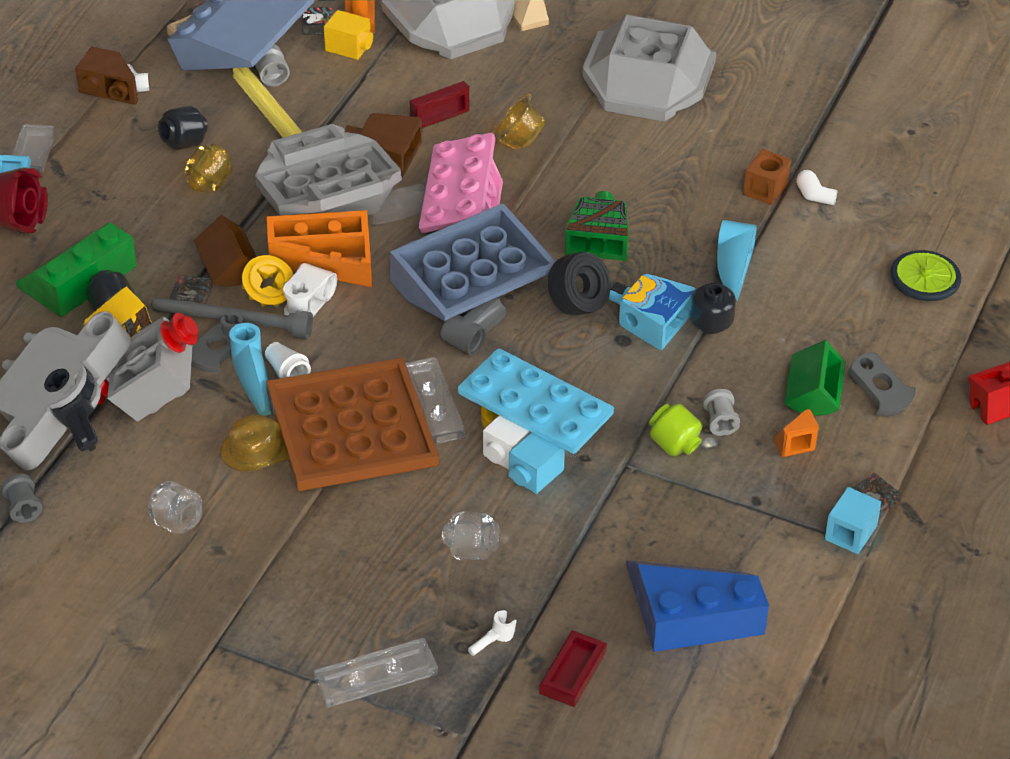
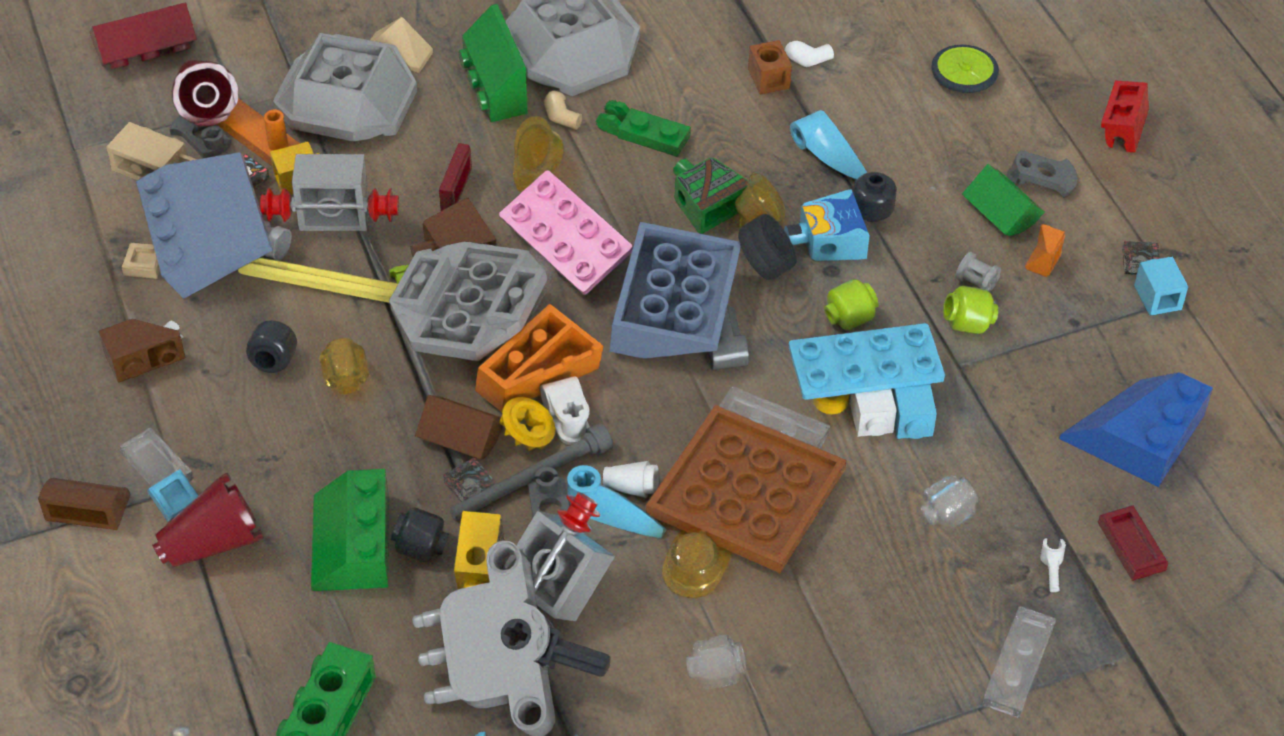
camera: 45 degrees left, 5 degrees up
(336, 57) = (330, 195): none -> light grey brick
(562, 54) = (494, 66): none -> green slope
(574, 109) = (558, 113): none -> tan arm
(591, 364) = (851, 304): none -> lime head
(621, 161) = (643, 128): none -> green hinge
(627, 255) = (759, 199): none -> clear yellow piece

